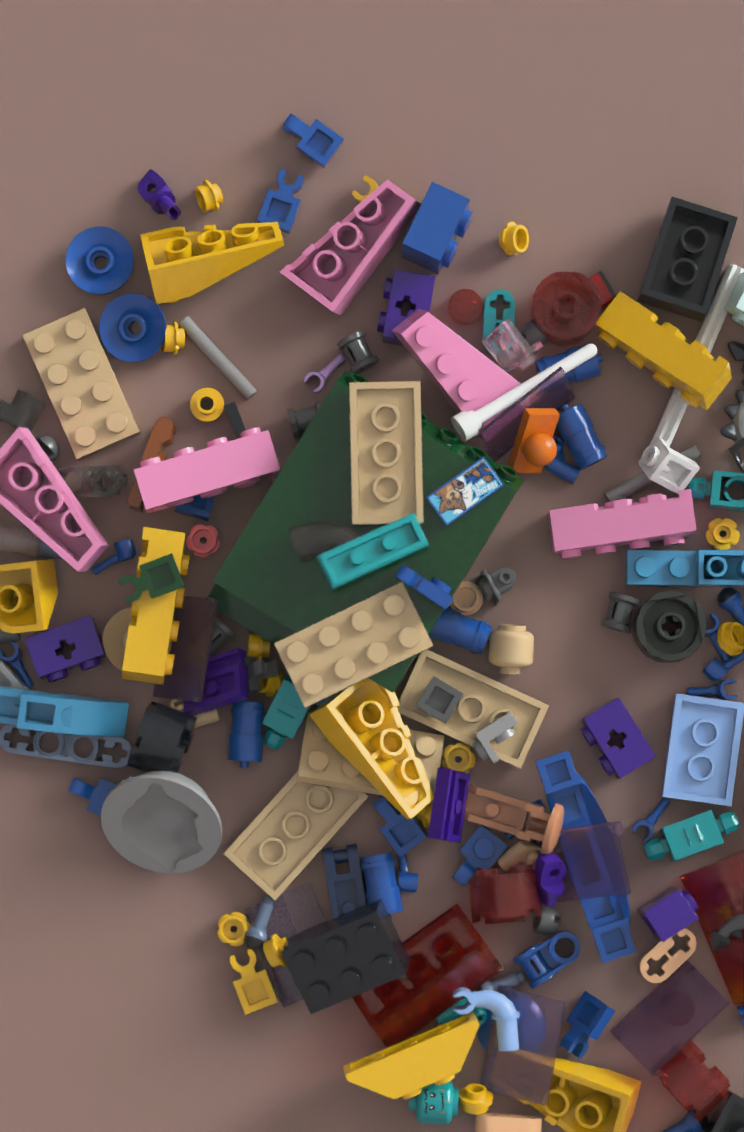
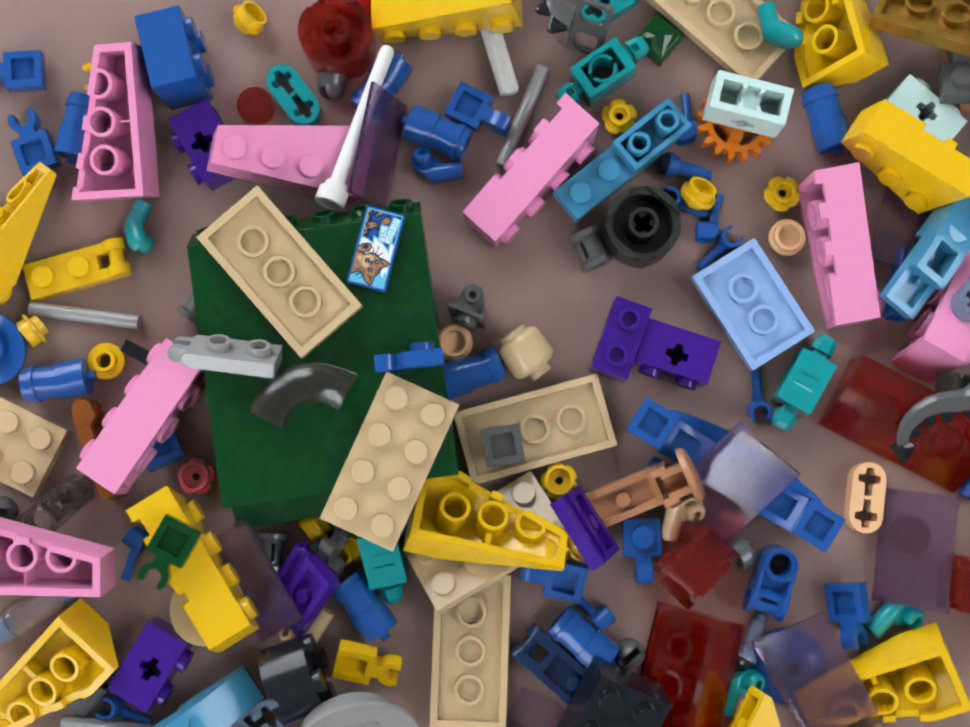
camera: 35 degrees left, 0 degrees up
(164, 392) = (61, 380): none -> blue piece
(212, 768) = (360, 662): none -> yellow plate
(239, 320) = (76, 270): none -> yellow plate
(304, 326) = (135, 230): none -> teal arm
(304, 480) = (227, 355): none -> light grey hinge
(319, 220) = (70, 133): none -> blue piece
(325, 372) = (183, 255): lavender hand -> none
(358, 352) = (195, 213): dark grey bush -> none
(372, 551) = (336, 367): teal tile -> none
(406, 931) = (627, 645): none -> dark grey hinge
(497, 730) = (573, 429): light grey bracket -> none
(502, 1011) = (778, 665): light blue piece -> none
(511, 348) = (318, 104): clear bracket -> none
(534, 440) = (402, 165): orange tile -> none
(549, 873) = (717, 515): dark purple piece -> none
(585, 695) = (620, 339): none -> dark purple brick
(617, 1054) = (894, 615): none -> teal arm
(621, 440) = (474, 109): none -> blue plate
(667, 466) = (529, 96): white bracket -> none
(669, 913) = (843, 462): dark purple brick -> none

